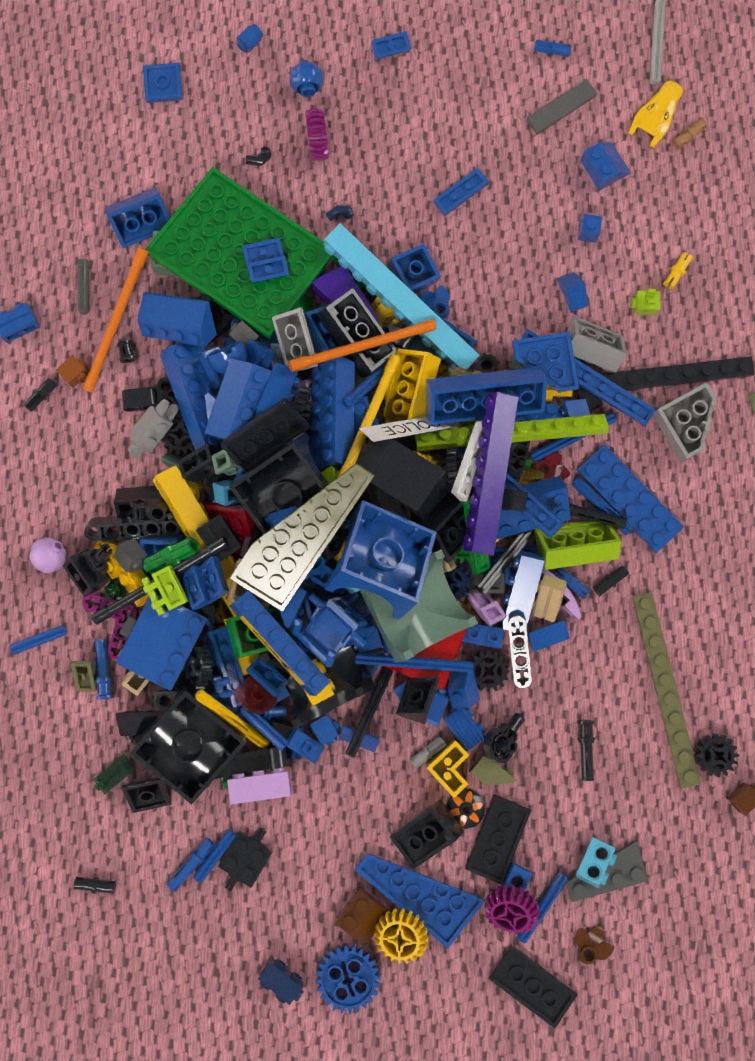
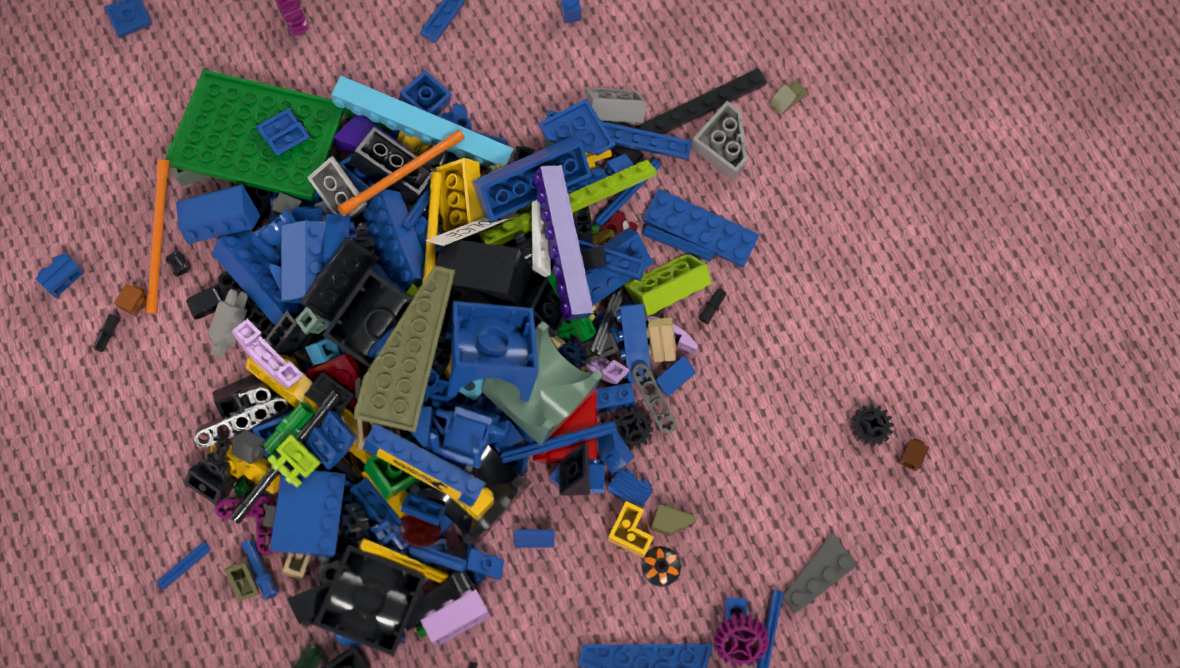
camera: 25 degrees left, 10 degrees down
(47, 555) = (165, 478): lavender plant -> none
(83, 286) = (114, 220): dark grey axle -> none
(137, 217) = (146, 139): blue slope -> none
(173, 479) = (265, 355): none -> lavender slope
(260, 159) = (245, 52): black arm -> none
(275, 712) = (444, 542): blue pin -> none
(326, 730) = (499, 542): blue brick -> none
(344, 210) = (335, 70): dark blue arm -> none
(369, 712) = (534, 508): black axle -> none
(427, 834) = (633, 603): black slope -> none
(428, 752) = (605, 526): light grey axle -> none
(498, 839) = (703, 582): black tile -> none
(502, 740) = (670, 485): black pin -> none
(573, 291) = (578, 67): blue slope -> none
(573, 583) = (680, 321): blue pin -> none
(587, 774) = (761, 489): black pin -> none
(592, 861) = (808, 565): medium azure brick -> none
(593, 941) = (831, 643): reddish brown plate -> none
(597, 516) = (677, 253): black pin -> none
(646, 302) = (646, 54): lime brick -> none
(666, 691) = (803, 386): olive plate -> none
(678, 270) = (664, 18): yellow pin -> none

